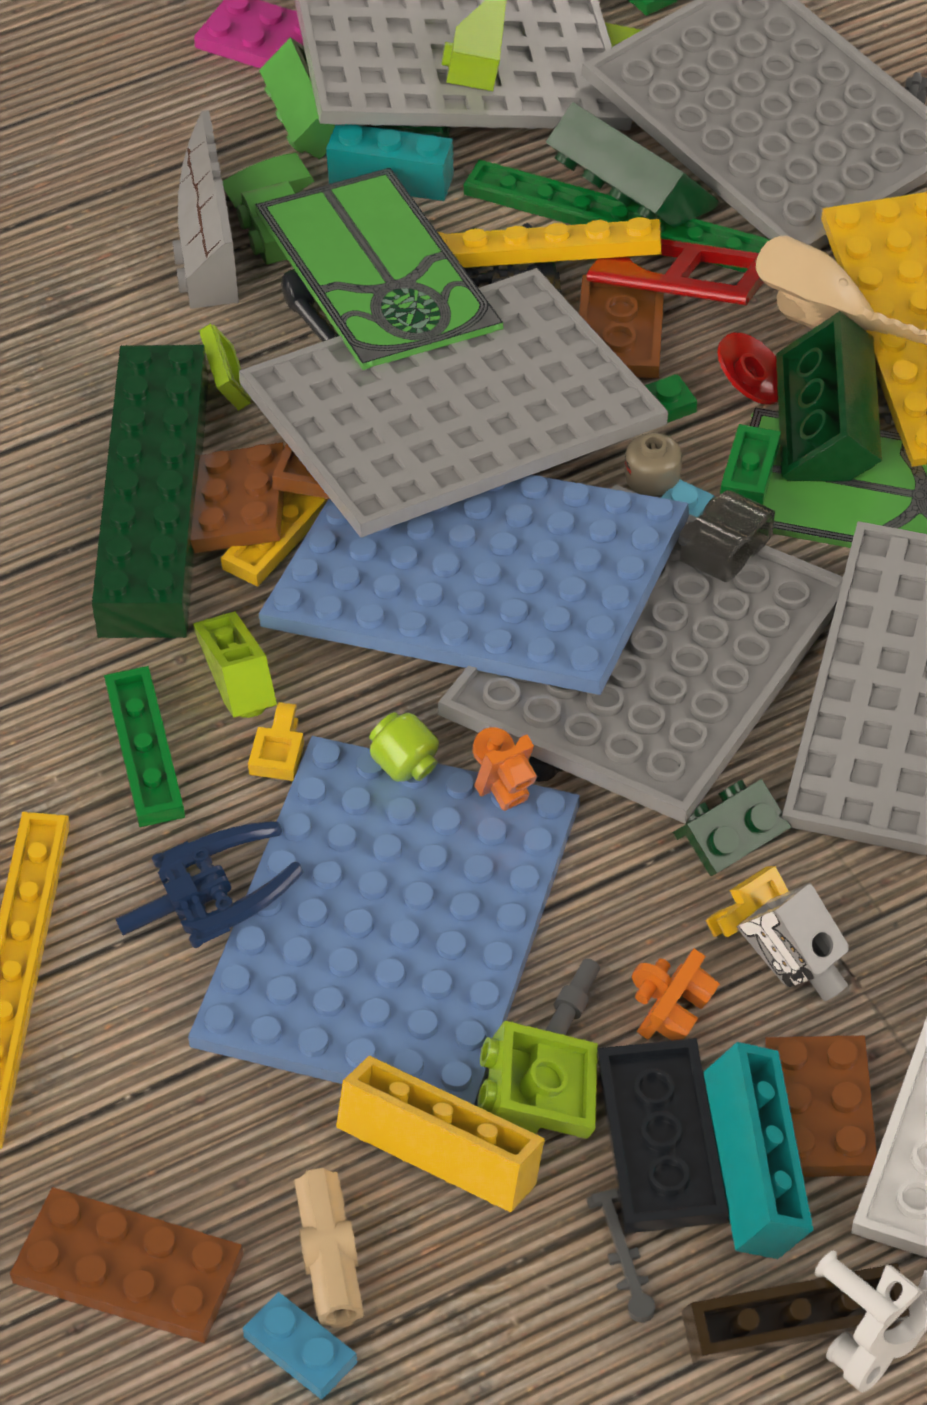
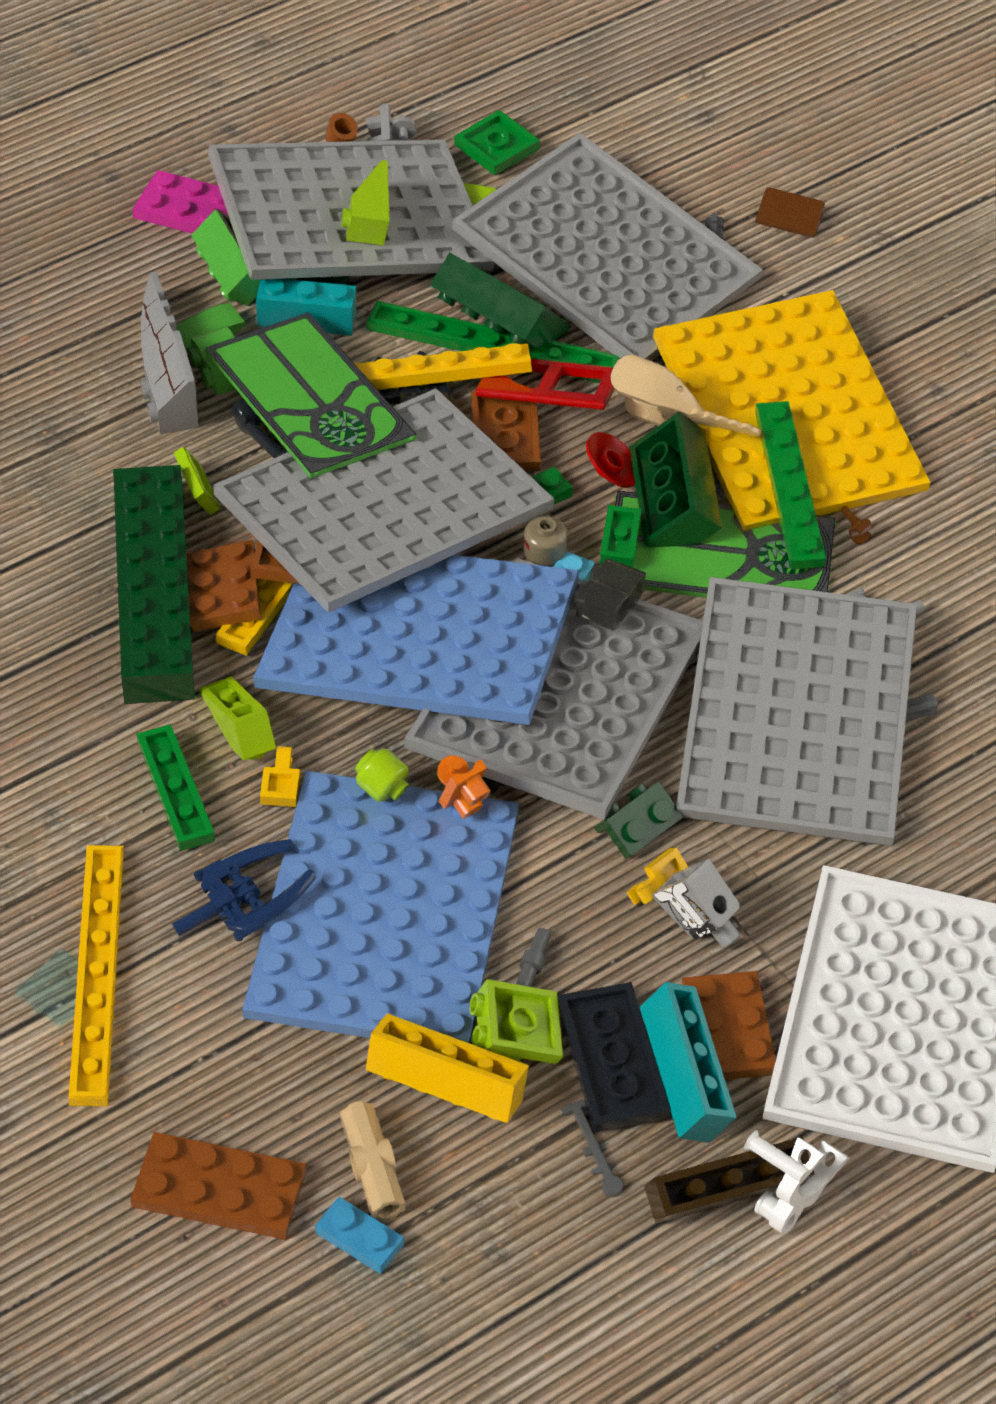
camera: 10 degrees left, 0 degrees up
(687, 981) = (619, 940): orange hips -> none

